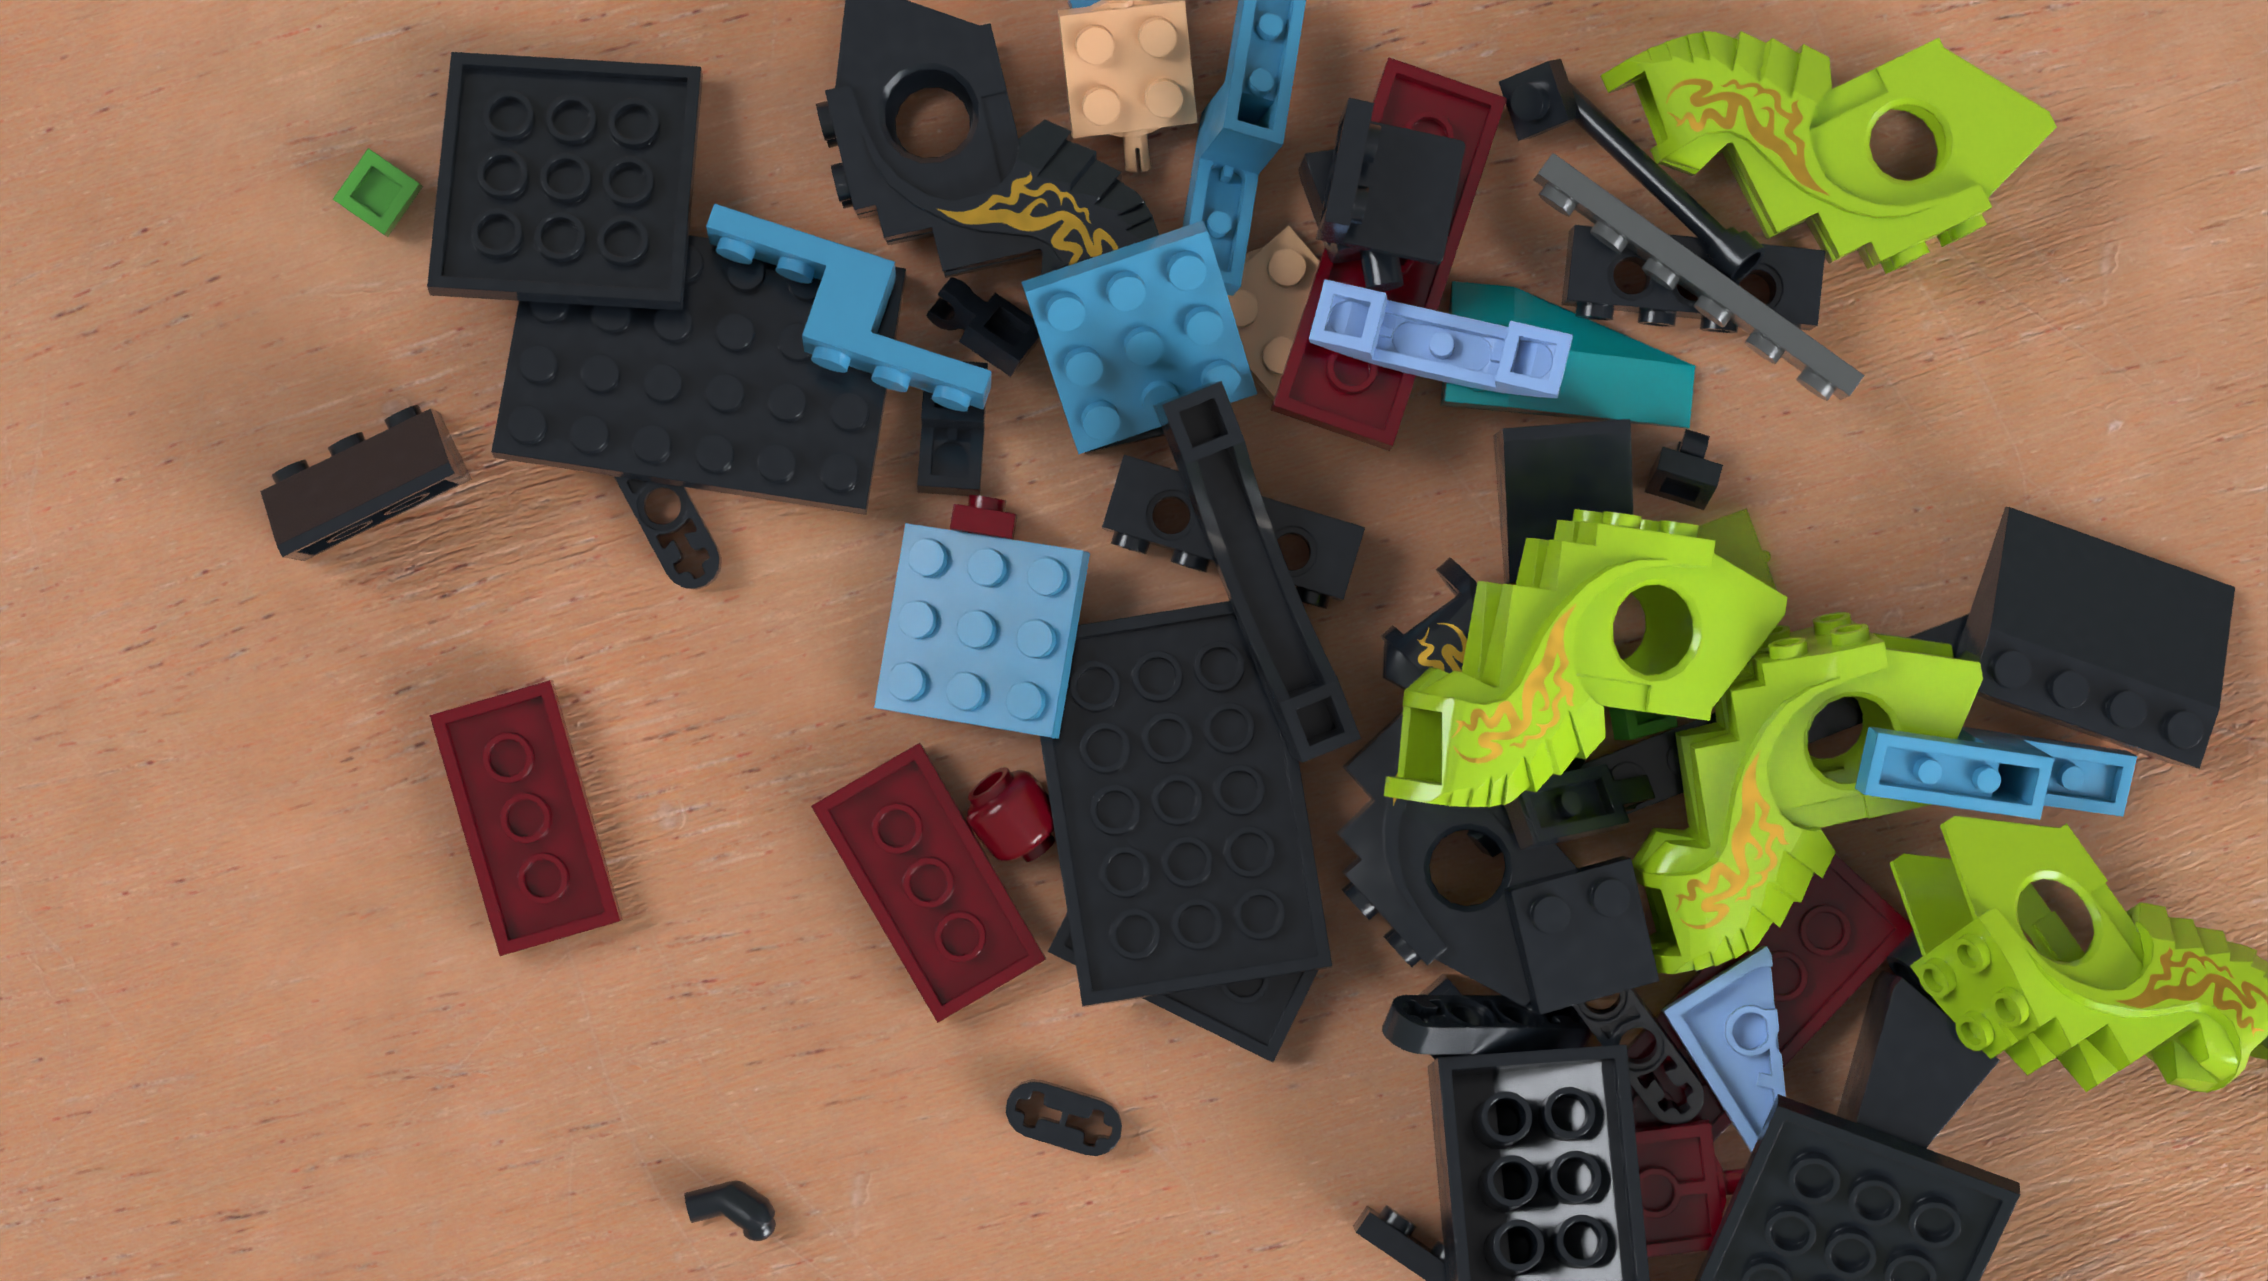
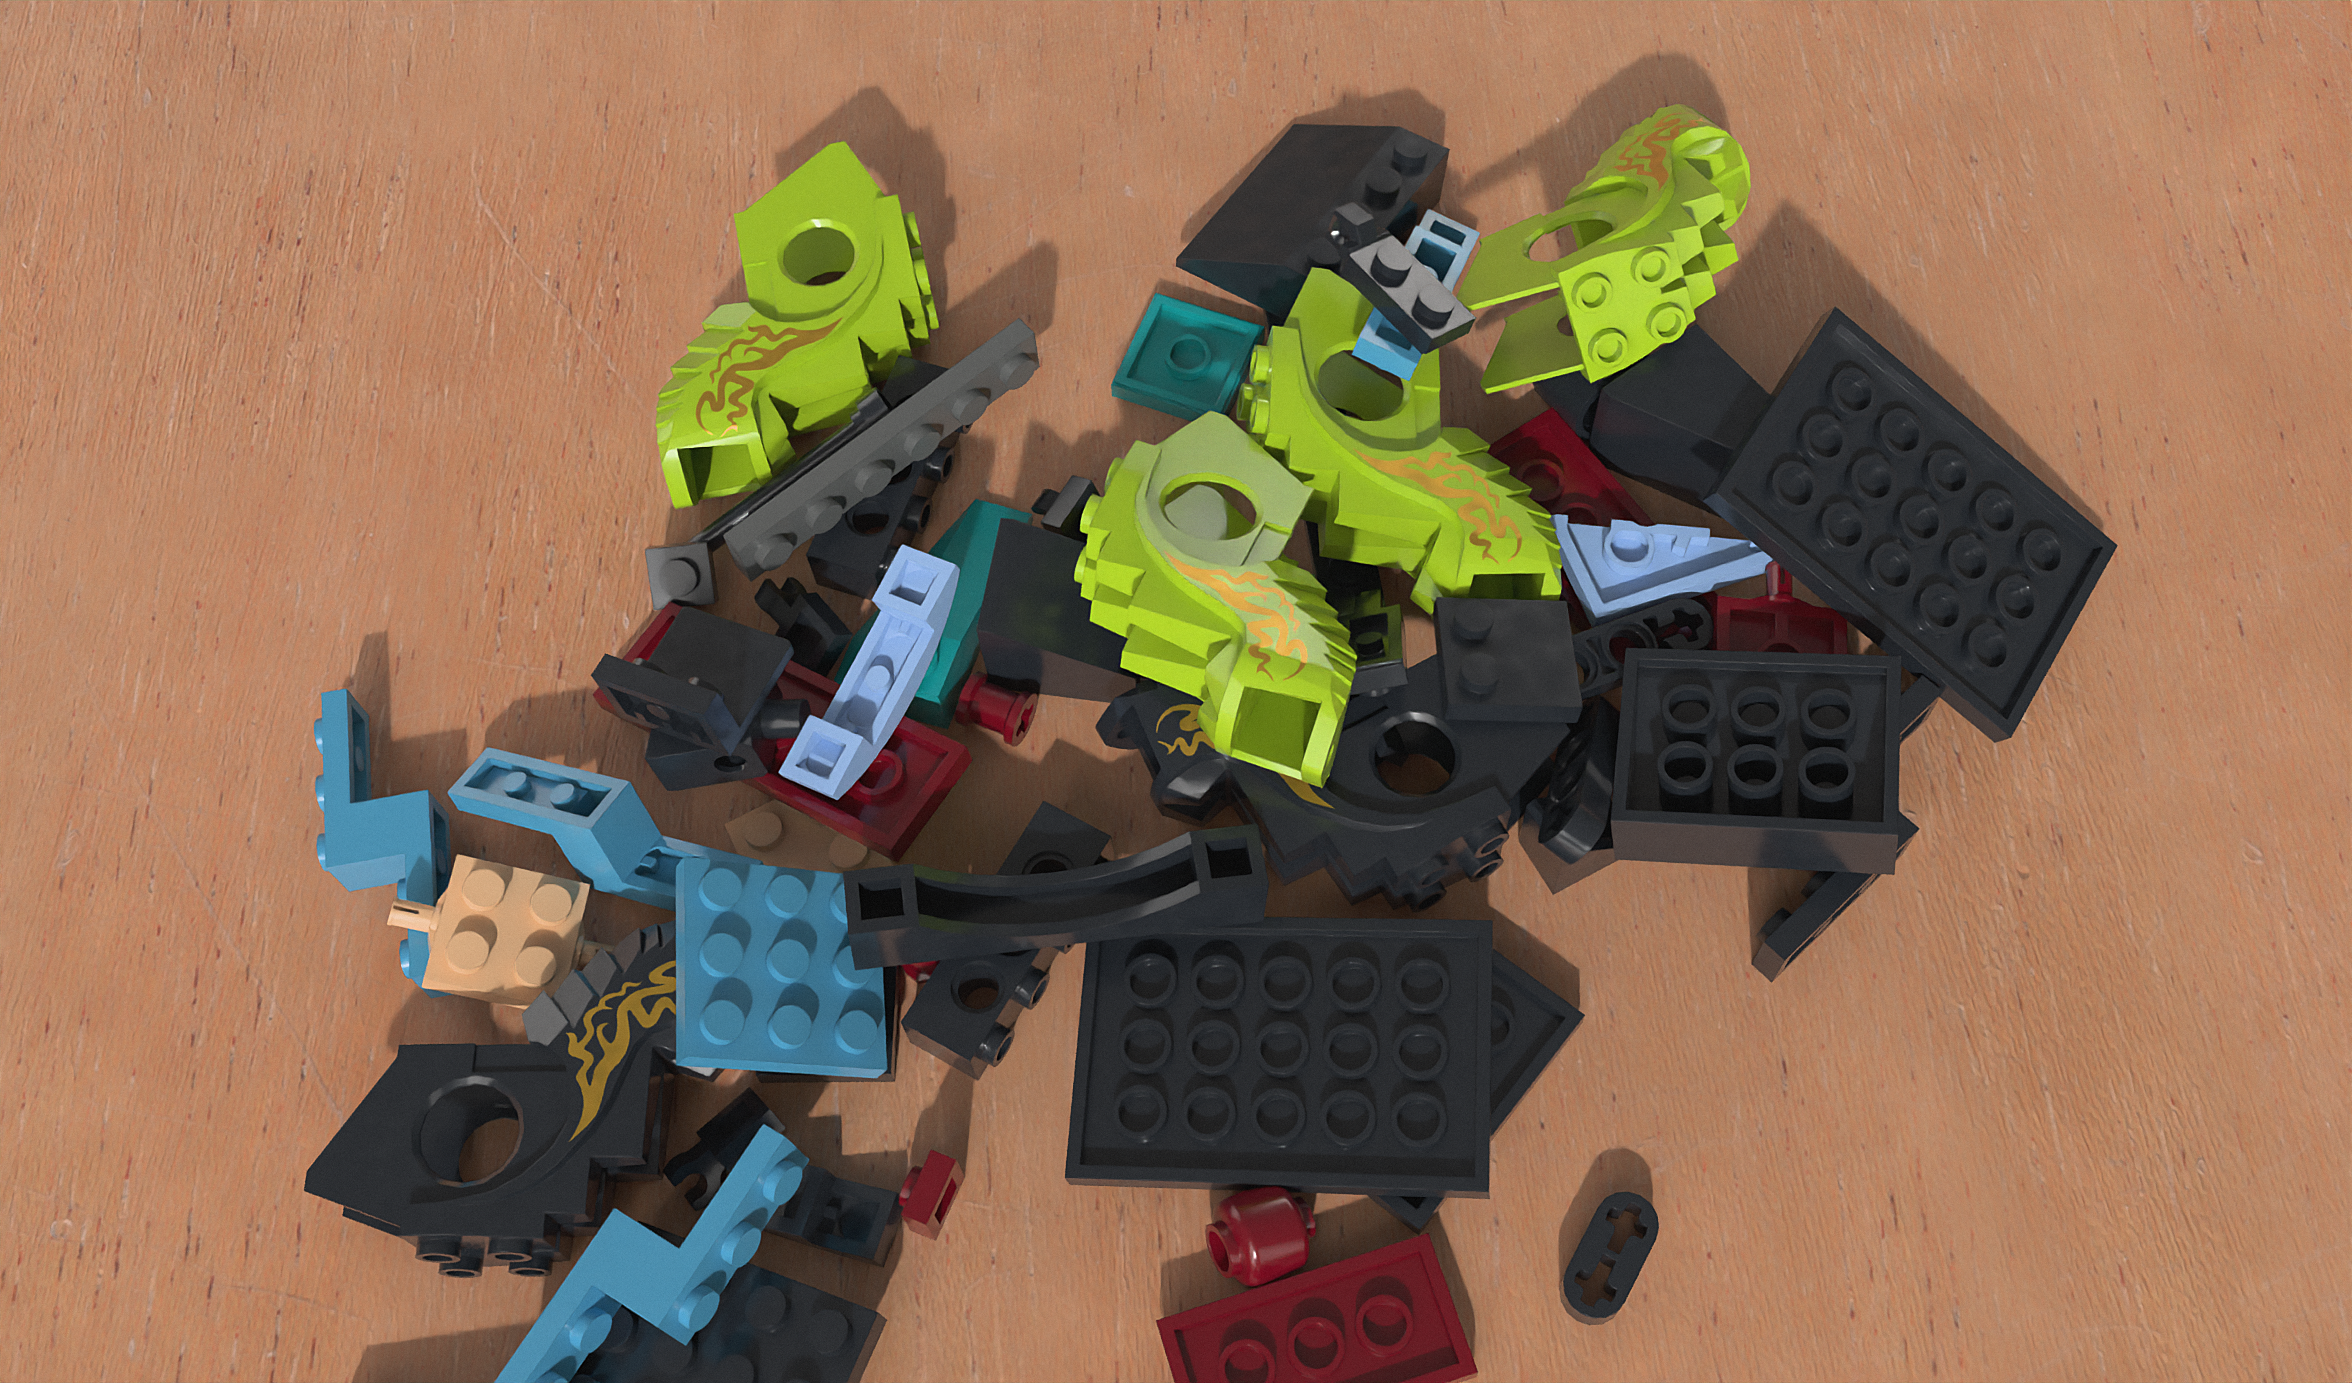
camera: 75 degrees left, 25 degrees down
(982, 630) = (1049, 1223): dark azure plate -> none
(1462, 451) = (996, 708): none -> dark red bush
(1508, 242) = (806, 622): none -> black plate
(1905, 542) = (1187, 359): none -> teal tile
(1956, 756) = (1396, 281): none -> black hinge

